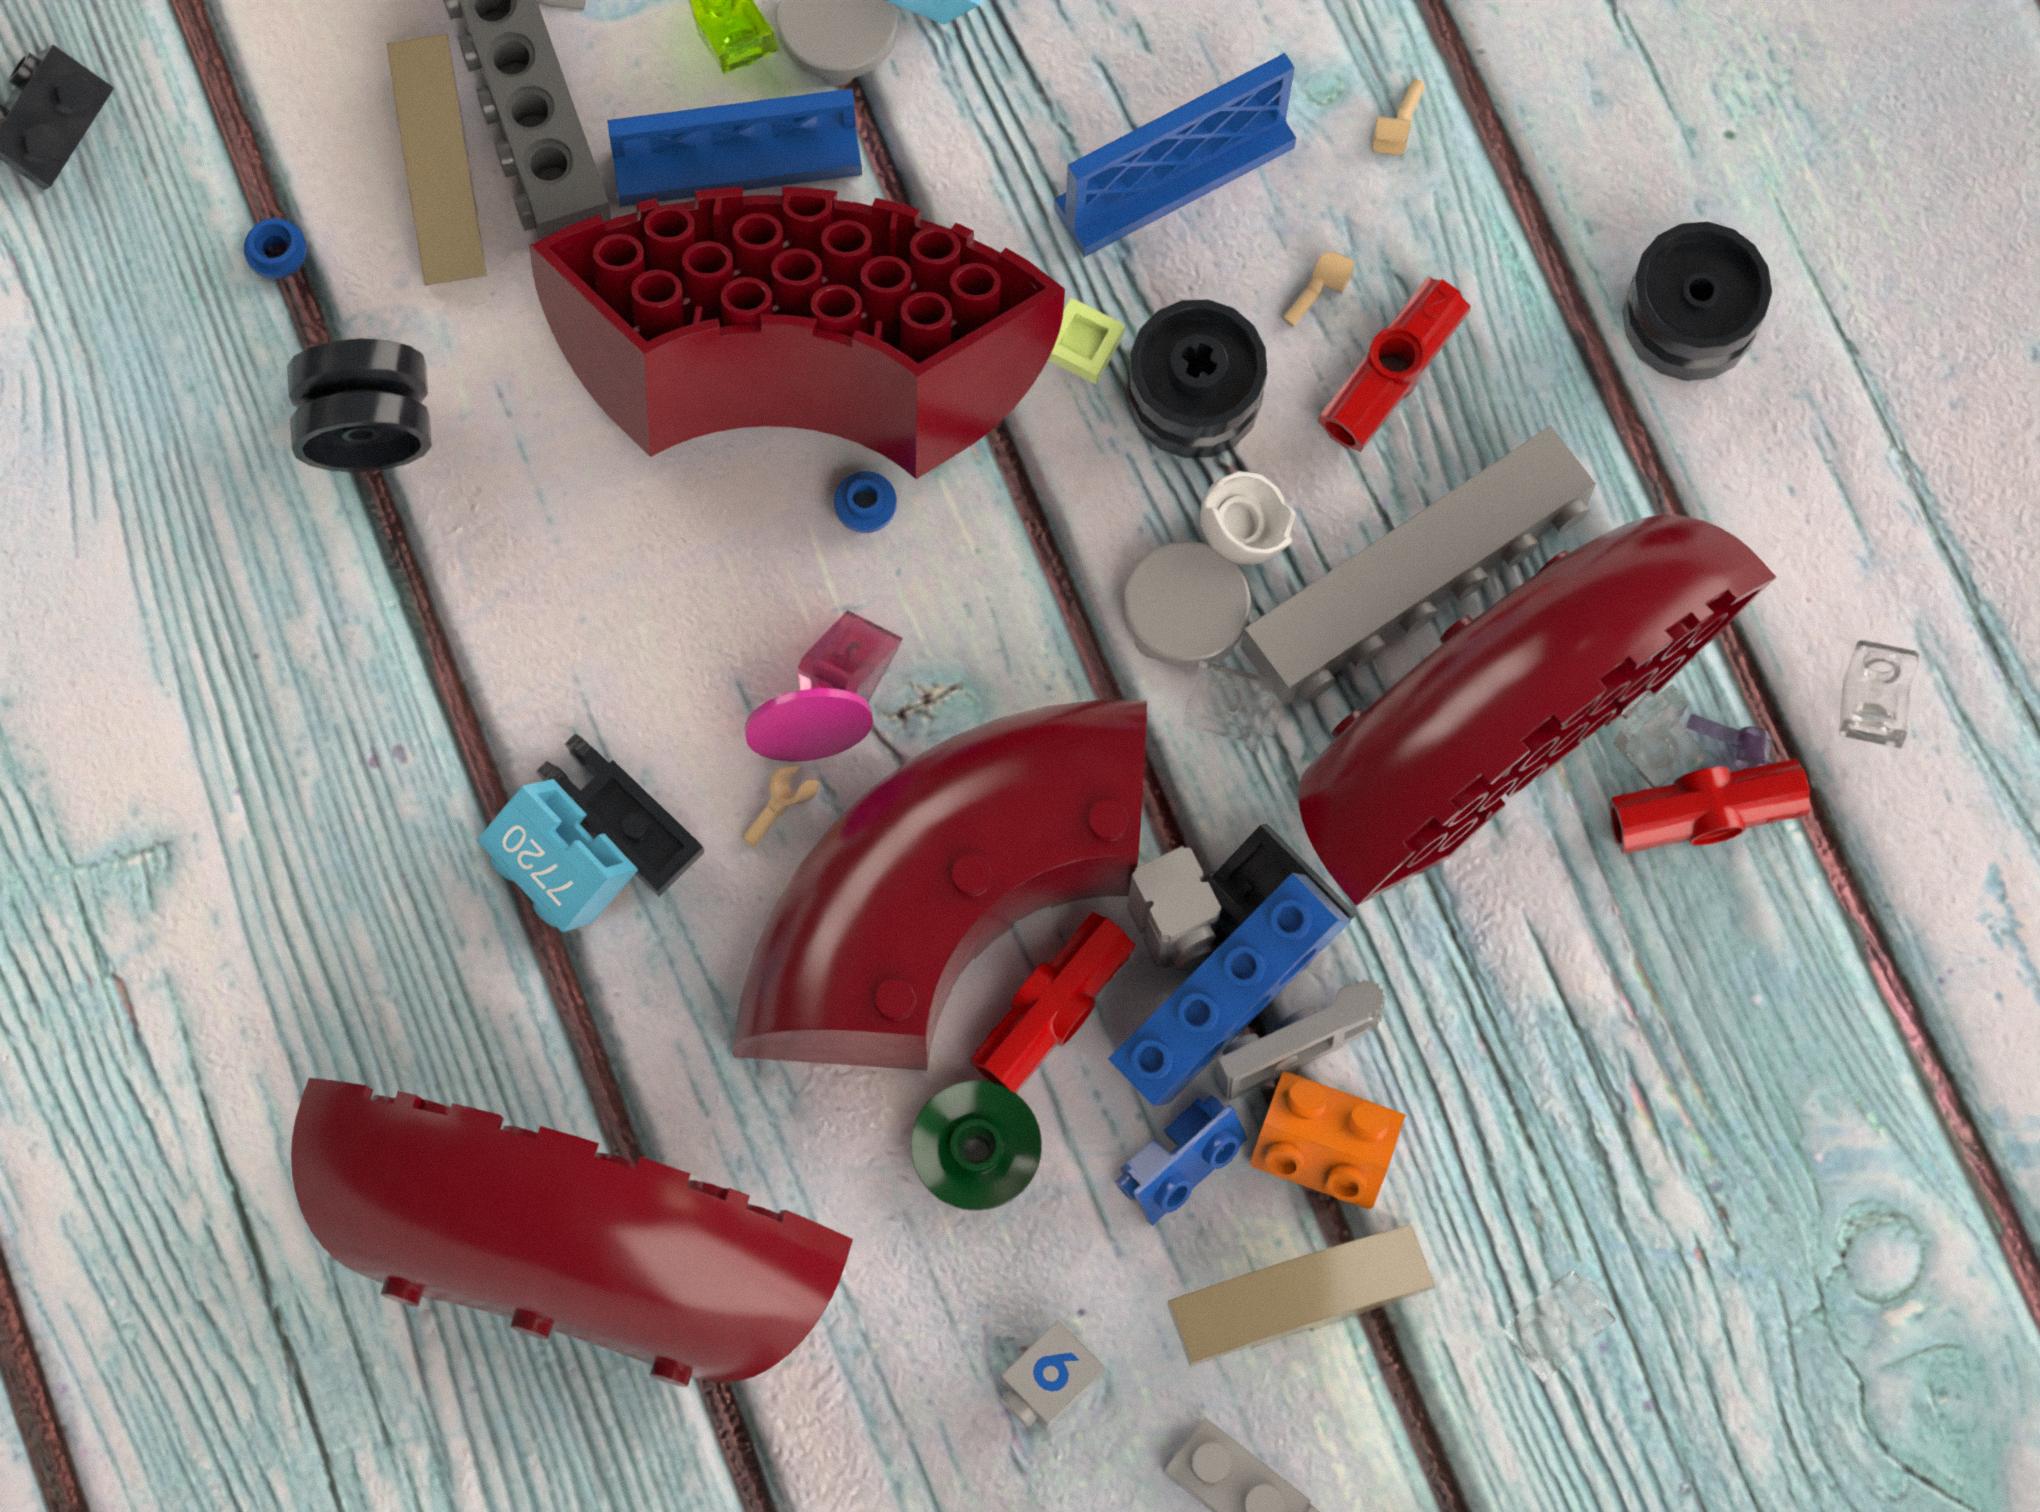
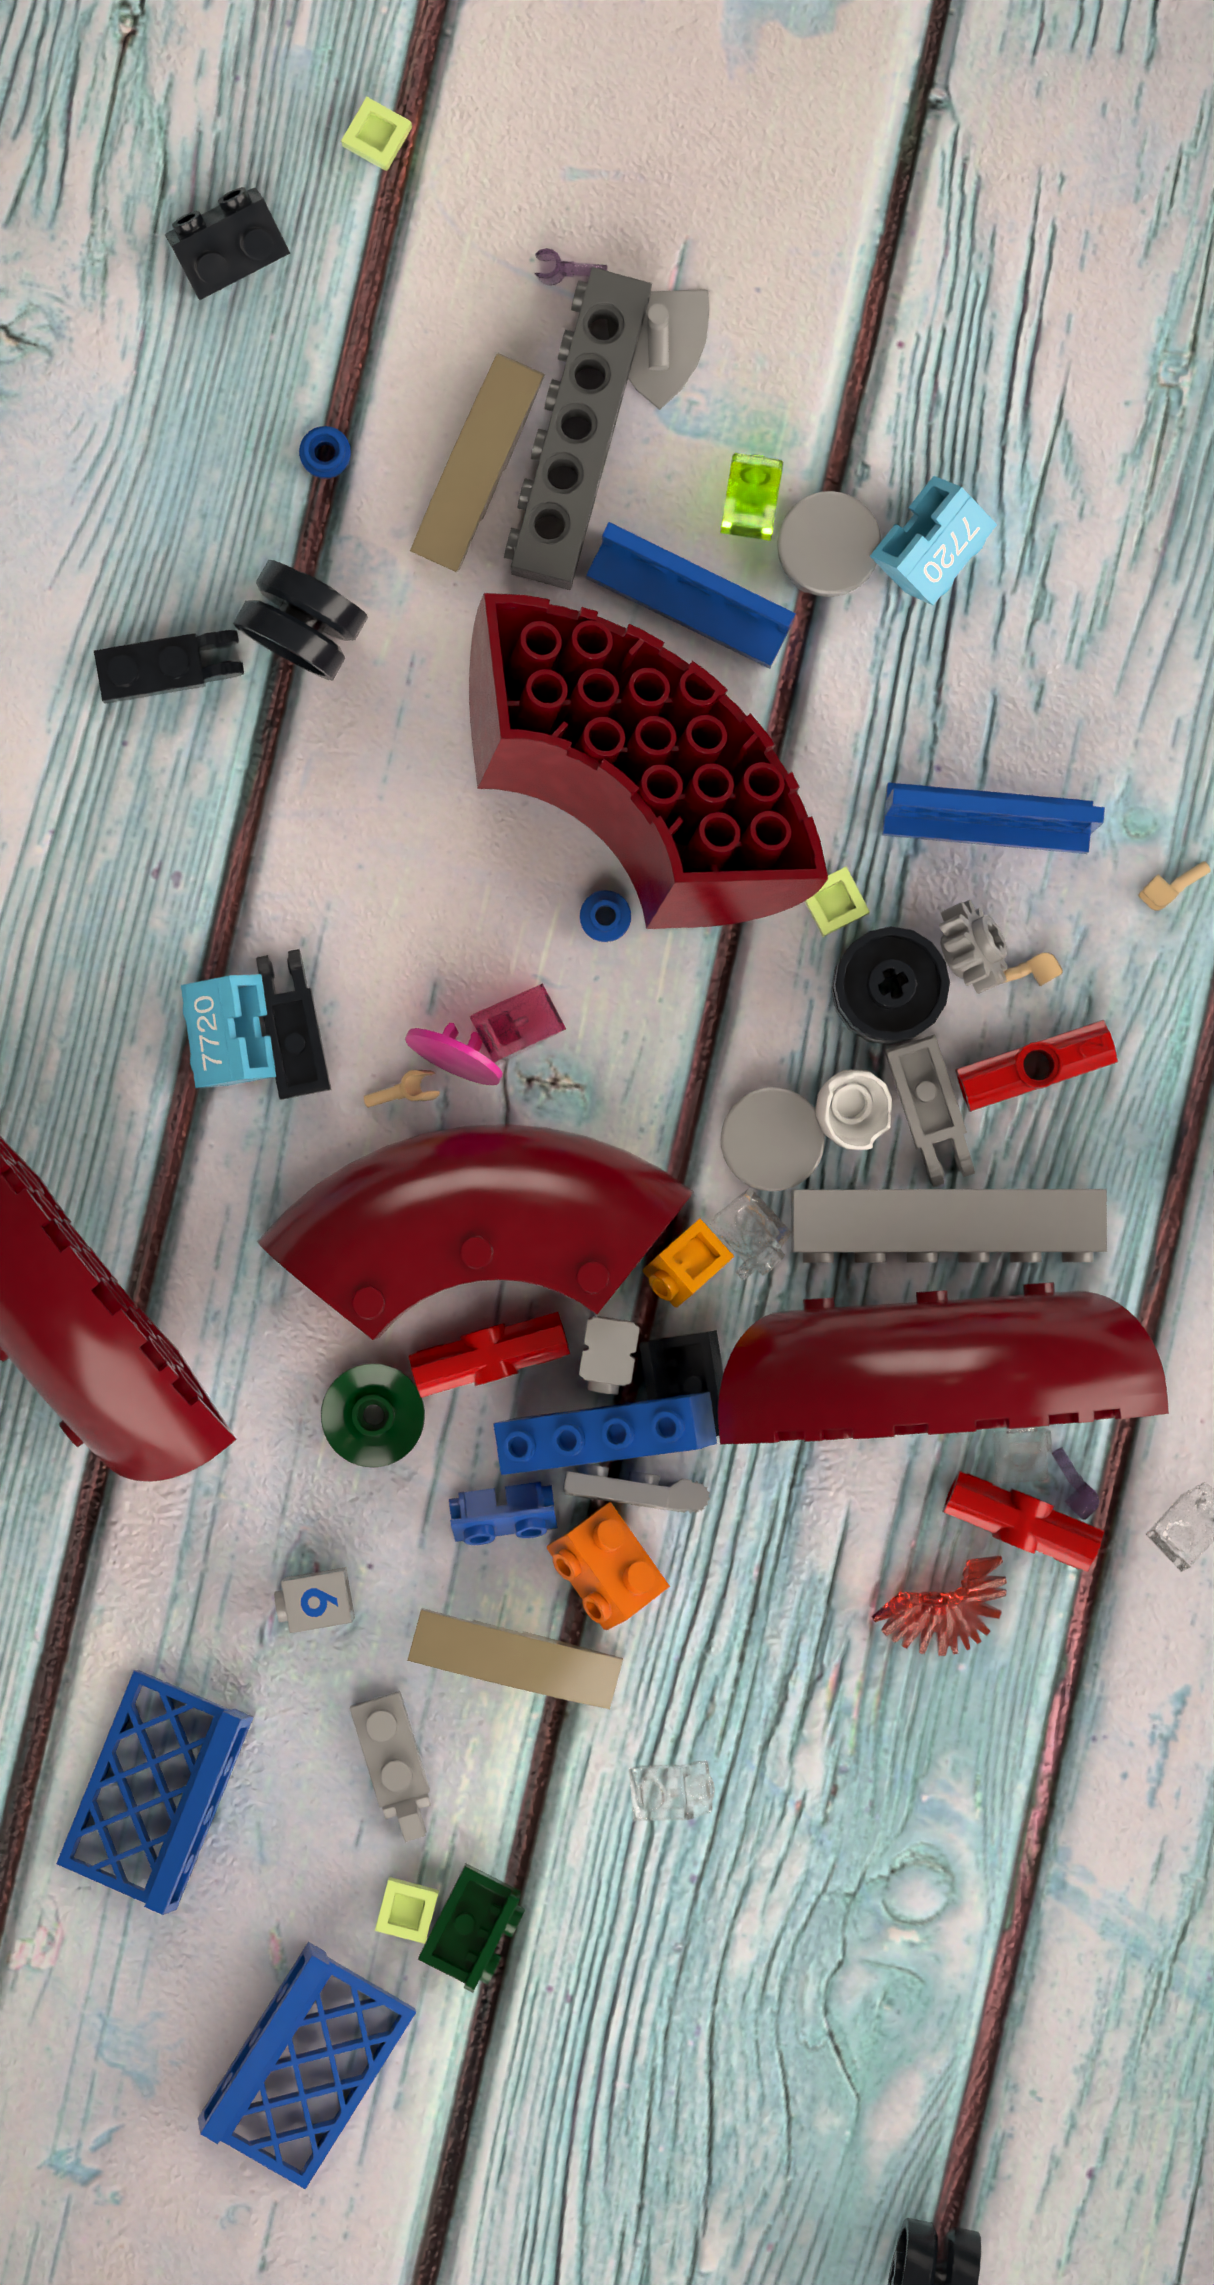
camera: 35 degrees right, 15 degrees up
(247, 551) = (162, 666): none -> black hinge
(1189, 782) = (687, 1264): none -> light orange bracket
(1251, 286) = (973, 946): none -> light grey gear
(1318, 470) = (929, 1104): none -> light grey hinge
(1705, 954) = (946, 1613): none -> clear red hair

